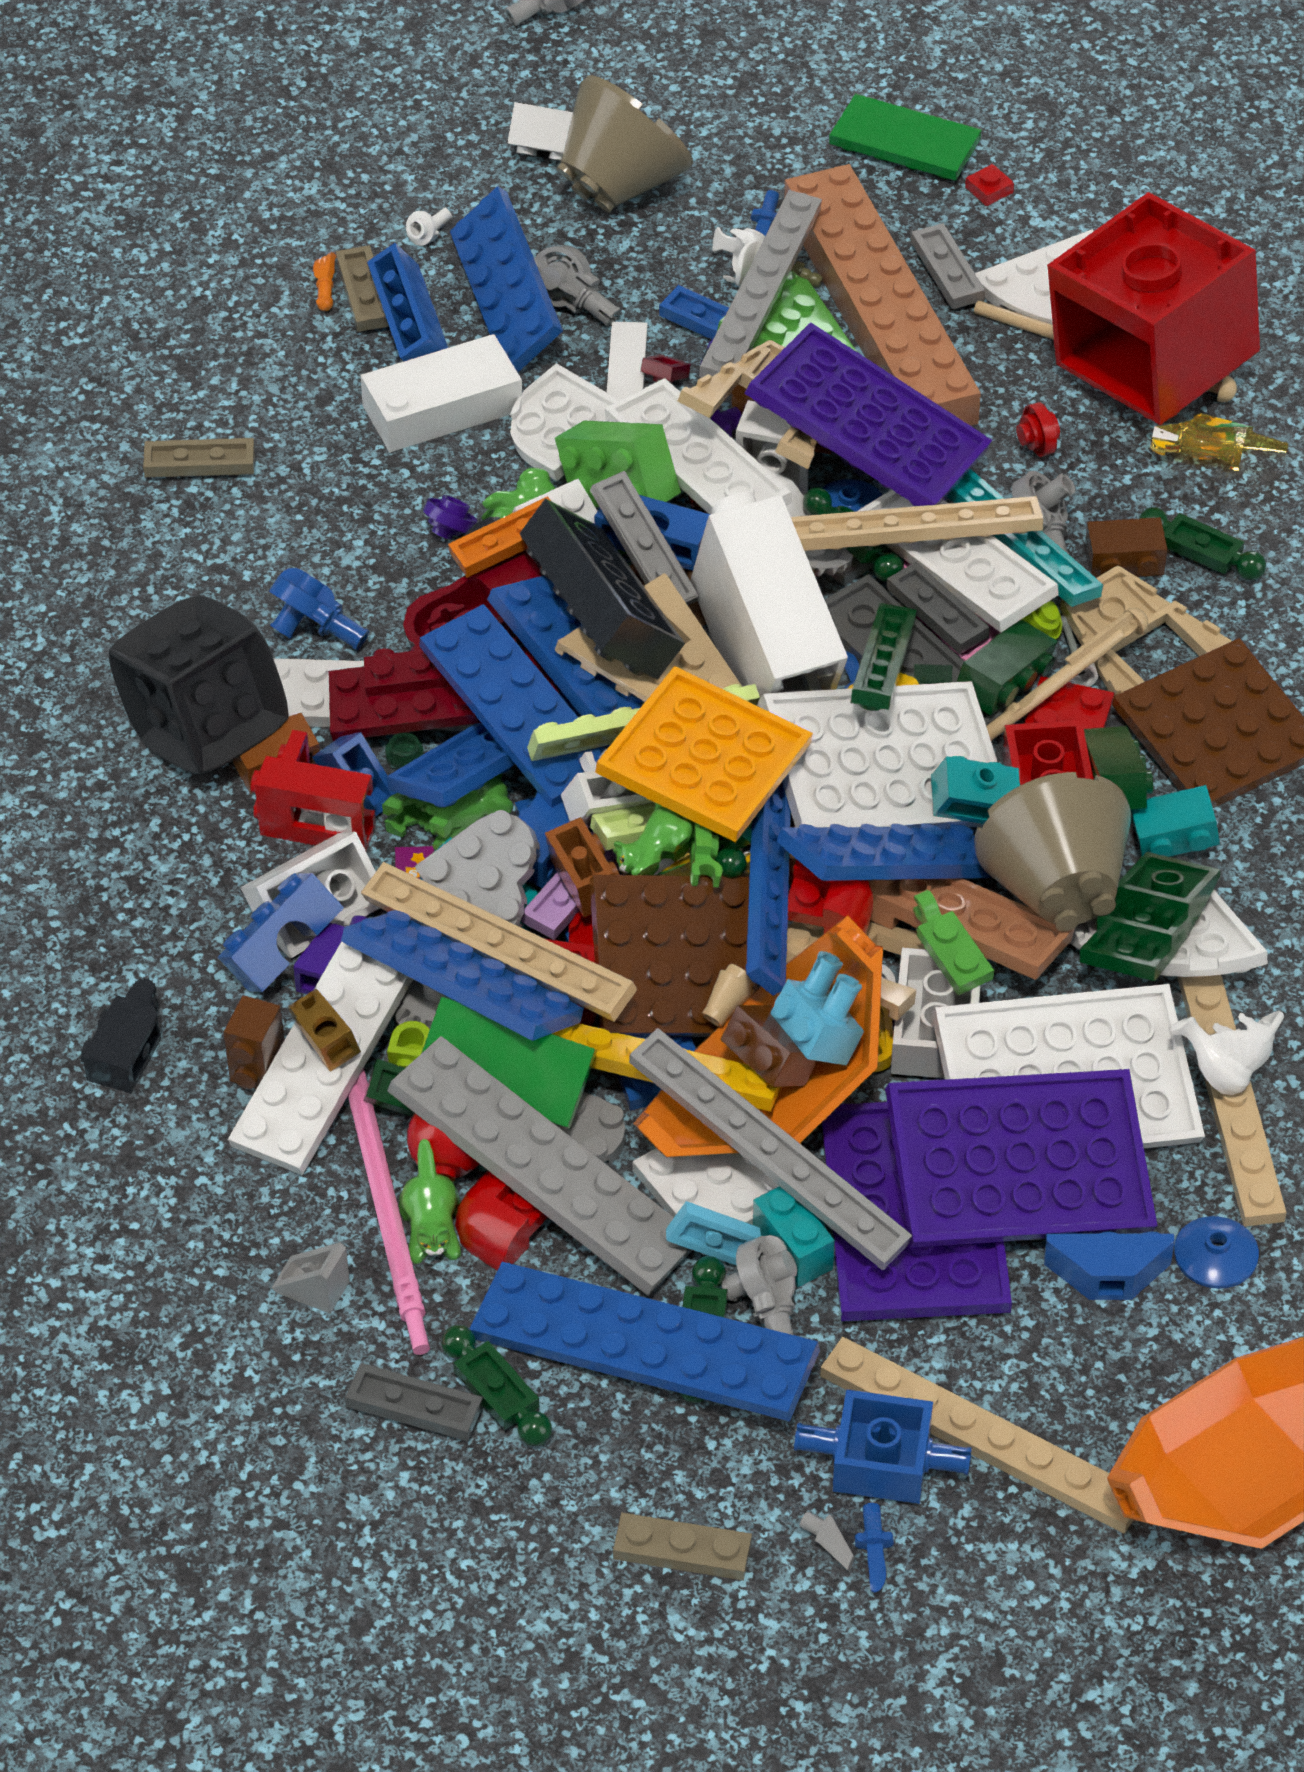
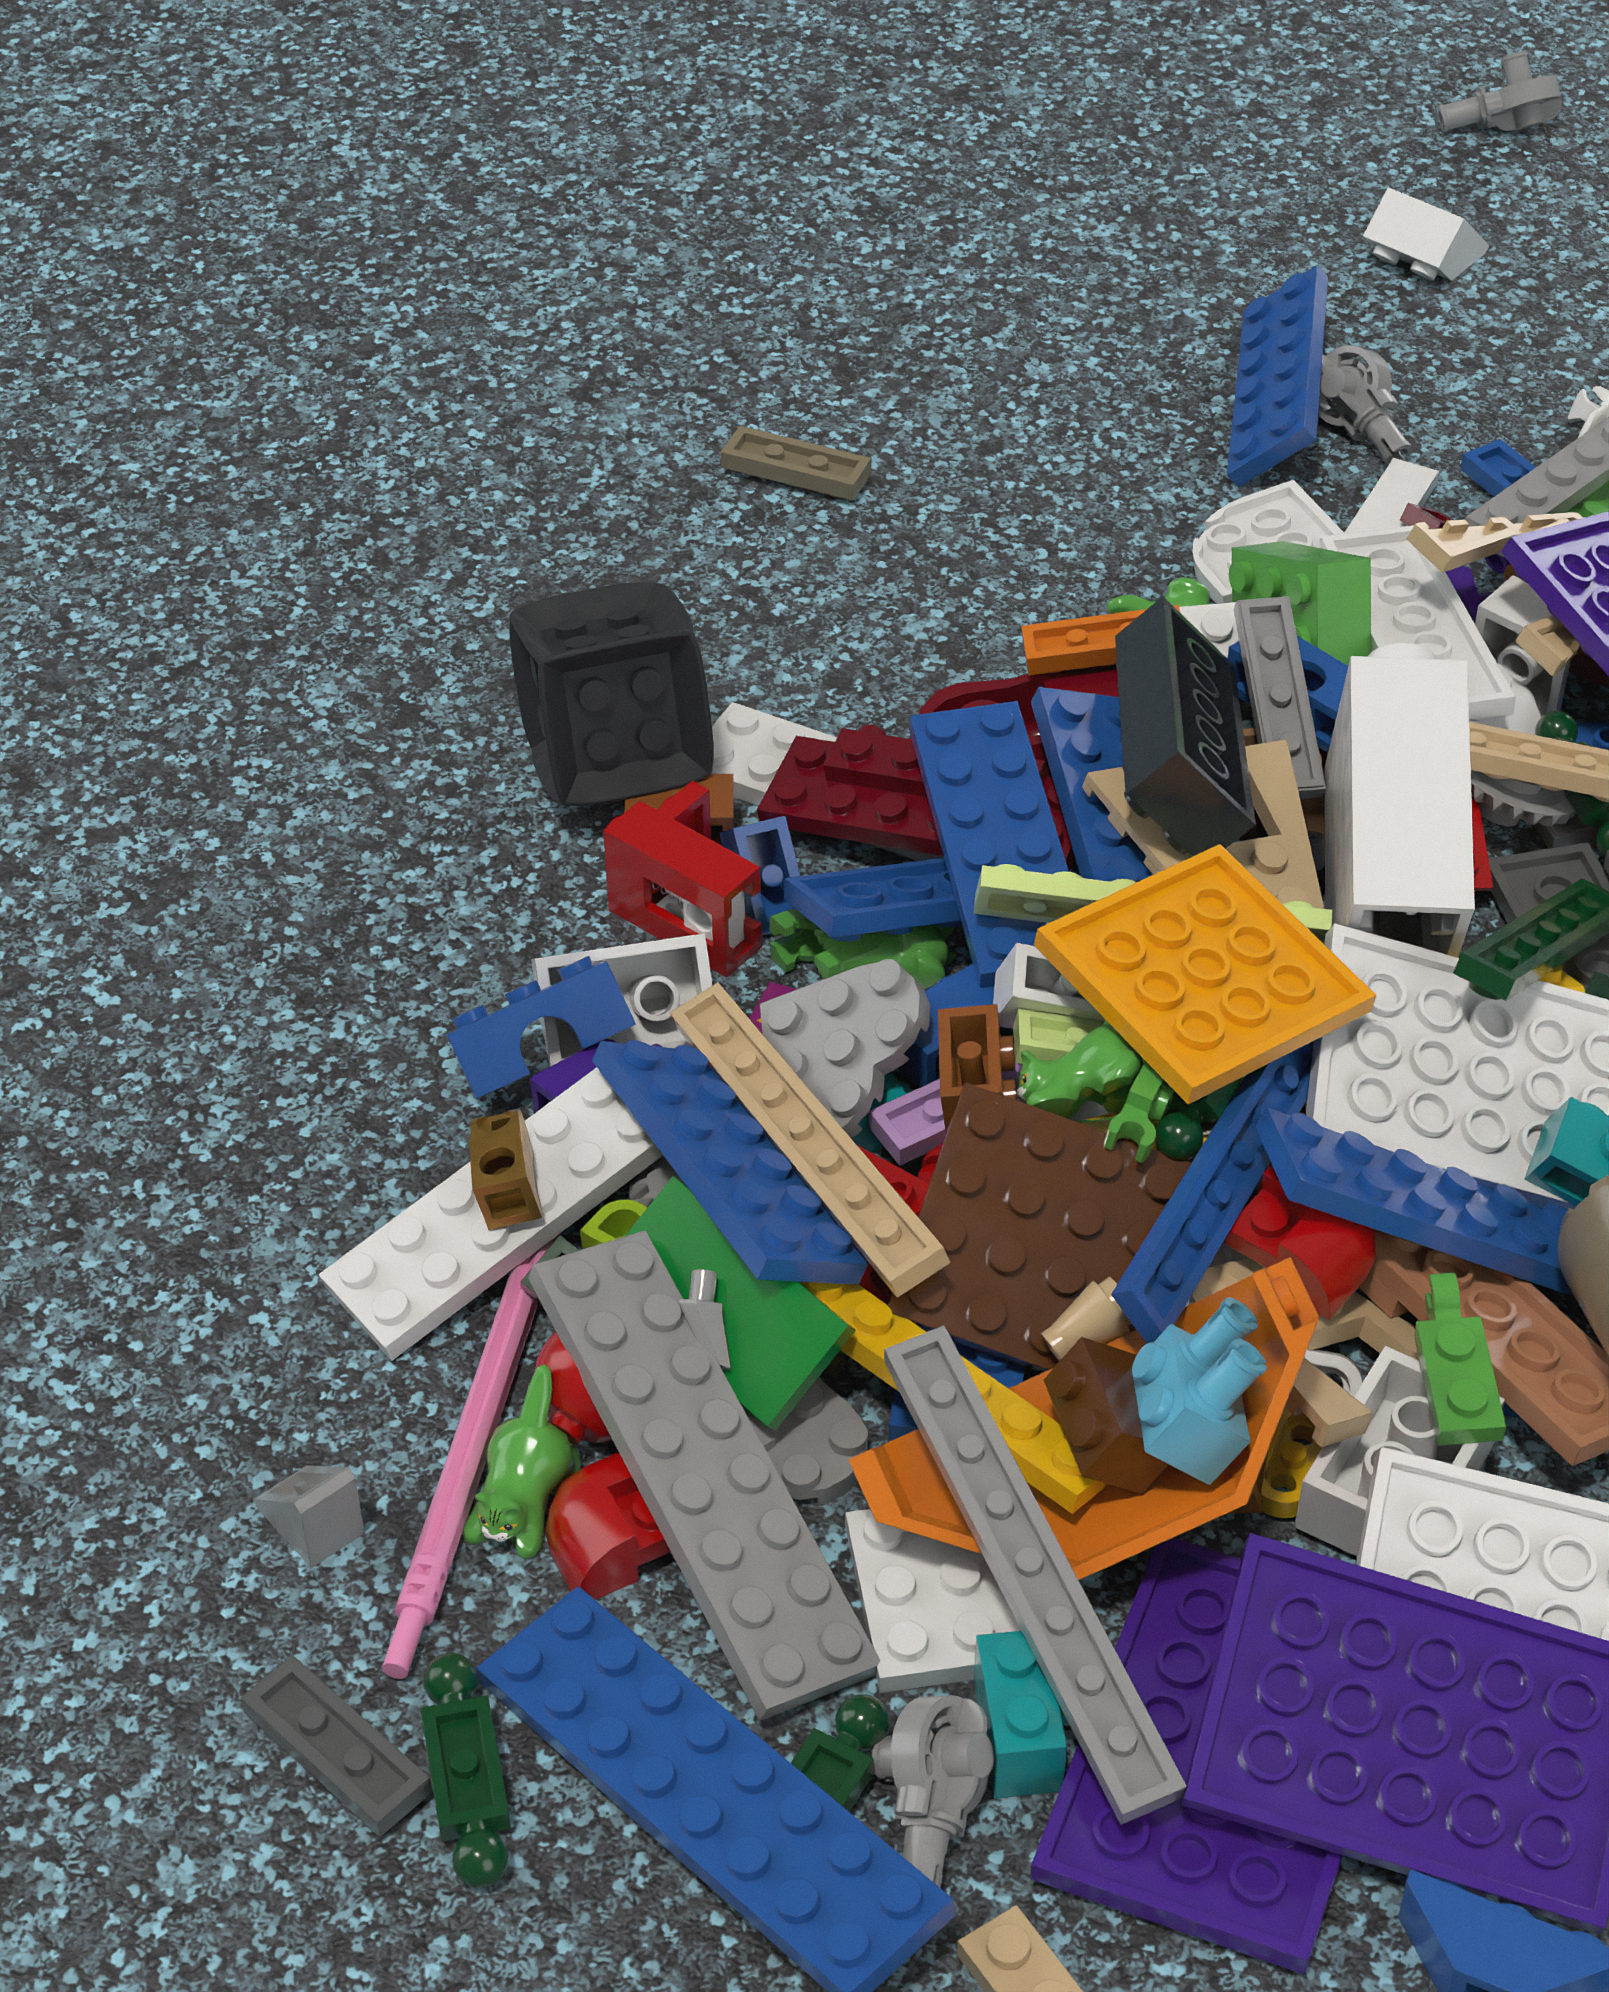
camera: 25 degrees right, 5 degrees down
(124, 1039) = (272, 1097): black hinge -> none
(252, 1040) = (413, 1149): reddish brown brick -> none
(312, 598) = (828, 649): blue pin -> none
(324, 271) = (1060, 325): orange piece -> none
(360, 288) = (1102, 342): dark tan plate -> none
(403, 749) = (845, 856): clear green plate -> none
(406, 303) = (1140, 376): blue brick -> none
(423, 227) = (1213, 301): white plate -> none
(441, 392) = (1130, 473): white brick -> none
(449, 516) = (1058, 602): dark purple plate -> none
(503, 1074) = (706, 1316): none -> light grey bar
(616, 148) = (1493, 265): dark tan cone -> none
(709, 1232) = (888, 1658): medium azure plate -> none

